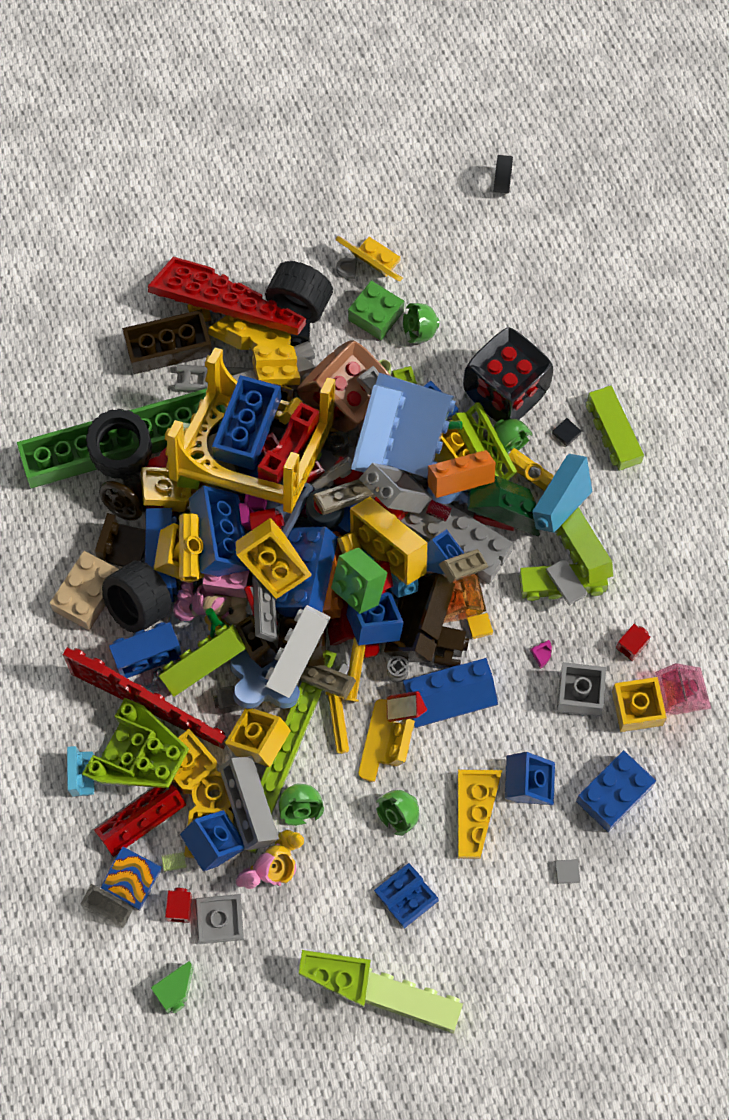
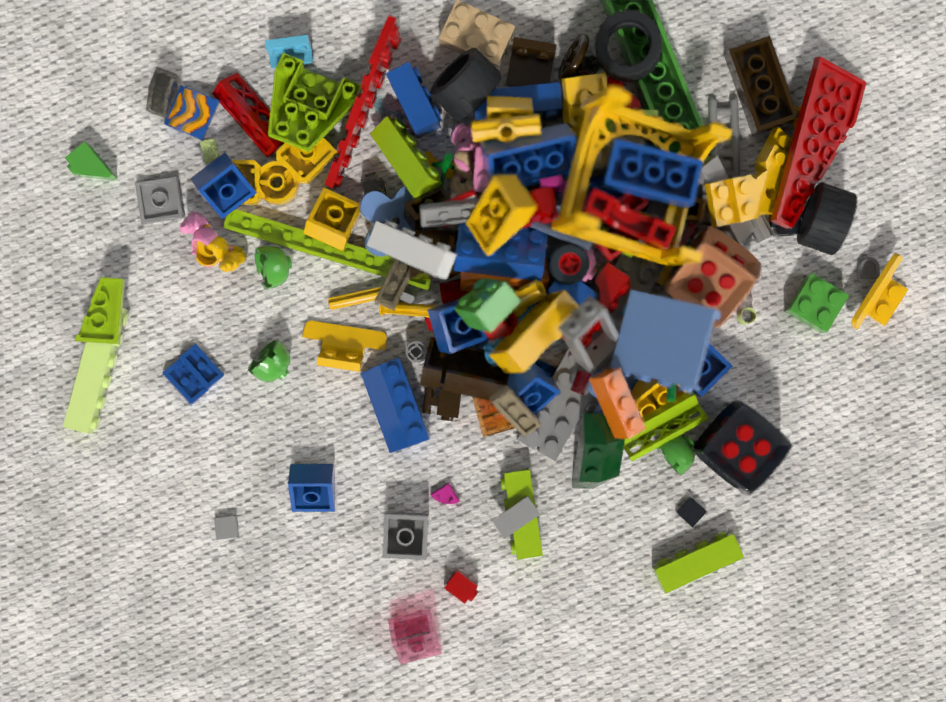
camera: 85 degrees right, 20 degrees up
(178, 905) = (167, 160): red brick -> none
(249, 803) = (263, 216): light grey brick -> none
(289, 410) = (672, 218): yellow tile -> none
(341, 470) = (610, 276): light grey plate -> none
(342, 496) = (578, 279): dark tan tile -> none
(368, 379) = (714, 299): light grey tile -> none
(378, 427) = (651, 312): light blue slope -> none
(405, 374) = (741, 338): lime tile -> none
(405, 706) = (371, 361): slope -> none
(420, 319) = (808, 351): bright green cylinder -> none
(475, 805) = (286, 436): yellow wing -> none
(480, 626) = (469, 431): yellow tile -> none
(524, 464) = (631, 491): yellow piece -> none
(564, 493) = (610, 510): dark azure slope -> none
(585, 548) = (556, 533): lime brick -> none
(615, 791) = (305, 572): blue brick -> none
(639, 704) = (393, 593): yellow brick -> none

